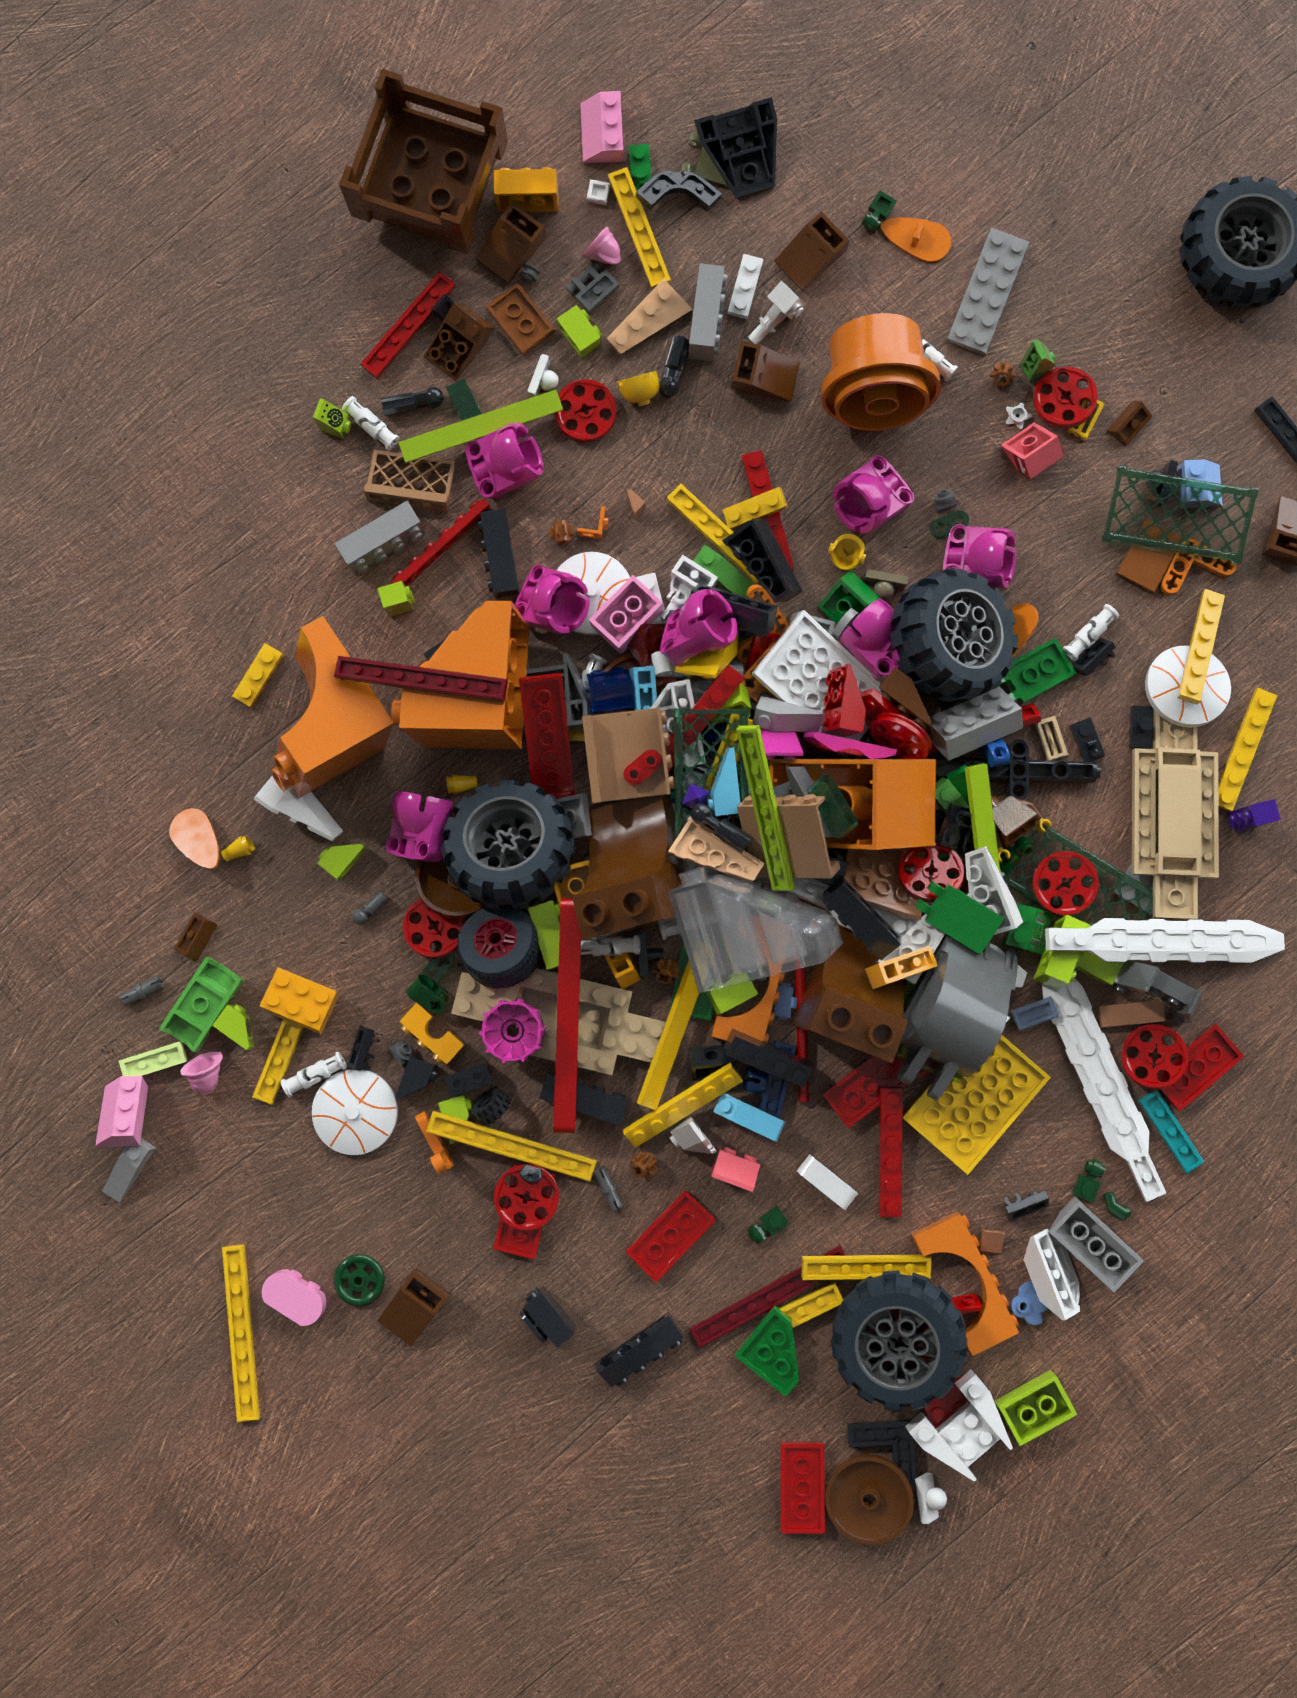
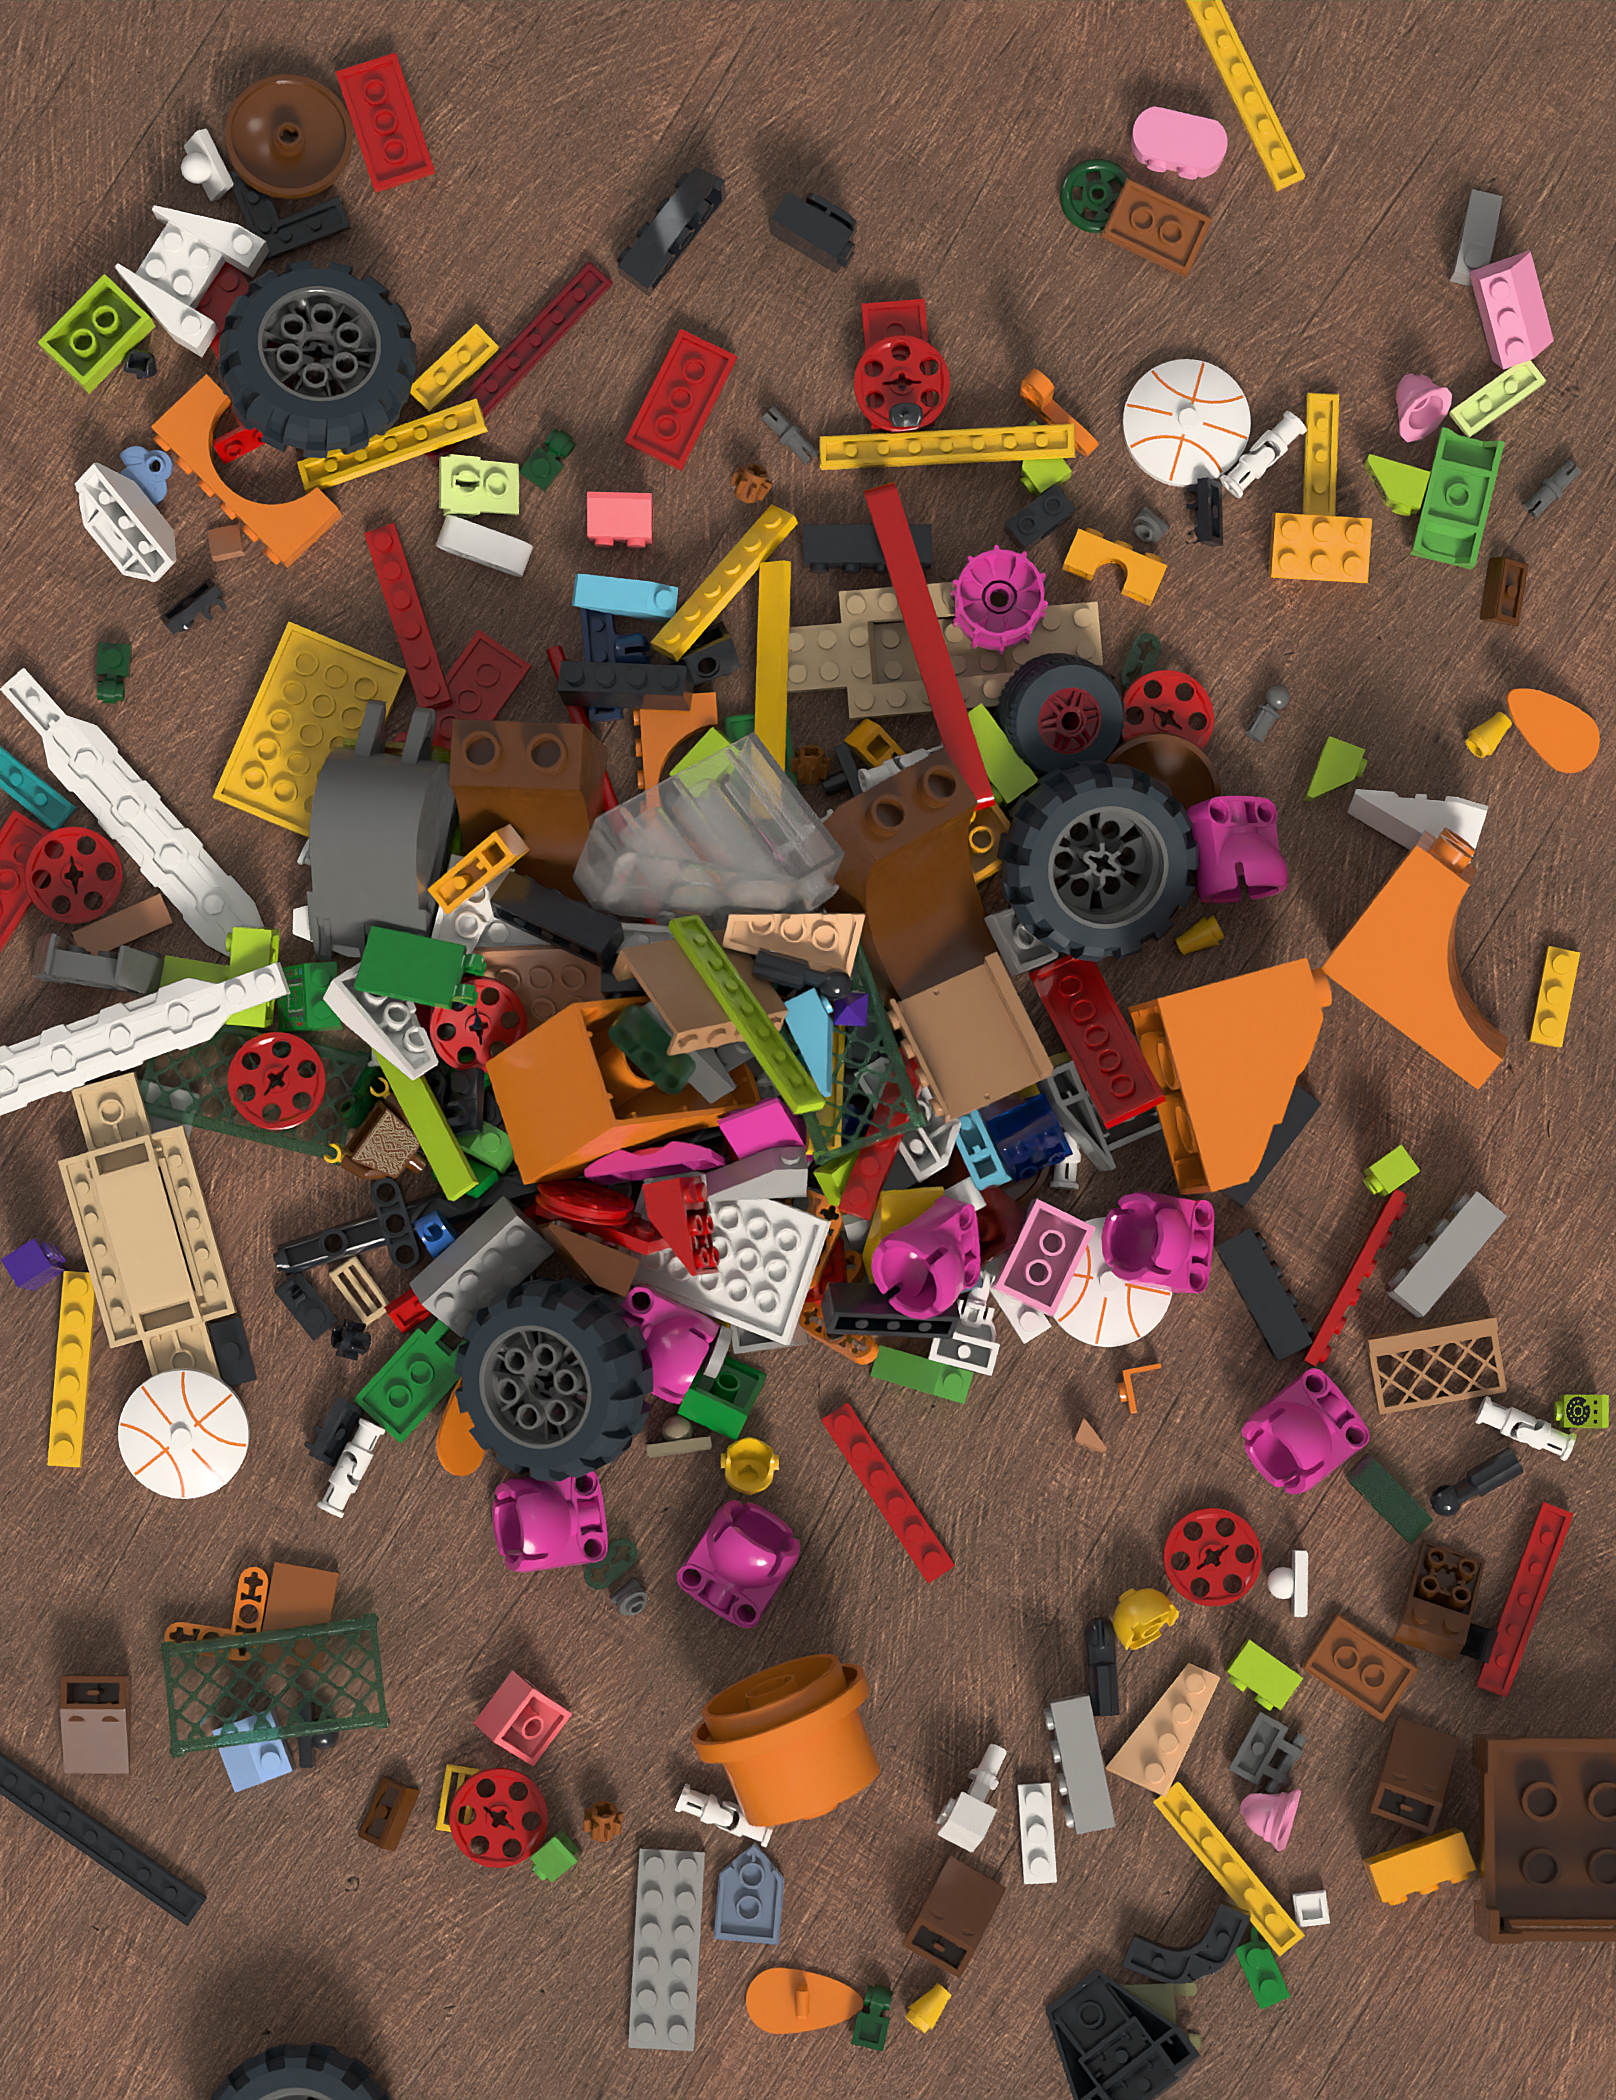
camera: 160 degrees right, 0 degrees up
(329, 1245) = (1156, 227): none -> dark orange tile
(413, 1307) = (1007, 184): reddish brown slope -> none
(416, 1076) = (1115, 499): black slope -> none
(421, 678) = (1300, 1036): dark red tile -> none
(426, 993) = (1142, 620): dark green piece -> none
(480, 426) = (1358, 1473): lime tile -> none
(490, 1106) = (995, 491): black tyre -> none
(530, 272) = (1369, 1743): dark grey bush -> none
(561, 532) = (1183, 1356): dark orange gear -> none
(602, 128) = (1339, 2010): bright pink slope -> none
(642, 767) = (942, 1027): red plate -> none
(691, 1137) = (696, 543): white wedge -> none
(705, 522) = (950, 1433): yellow plate -> none
(755, 507) = (908, 1487): yellow plate -> none
(764, 372) = (961, 1703): reddish brown slope -> none
(764, 559) = (867, 1409): black wedge -> none
(772, 1351) = (485, 288): green plate -> none
(785, 1002) = (625, 776): medium blue piece -> none
(821, 1223) = (477, 486): none -> yellowish green piece
(845, 206) = (928, 2008): none -> yellow cone
(930, 301) = (749, 1899): none -> sand blue tile
(1011, 1378) = (140, 363): none -> black piece
(1021, 411) = (561, 1778): white plate -> none
(1034, 1013) = (263, 880): sand blue plate -> none
(1067, 709) = (350, 1339): none -> black gear
(1095, 1244) = (80, 583): light grey slope -> none
(1115, 1209) = (63, 643): dark green arm -> none
(1201, 647) = (183, 1495): yellow plate -> none

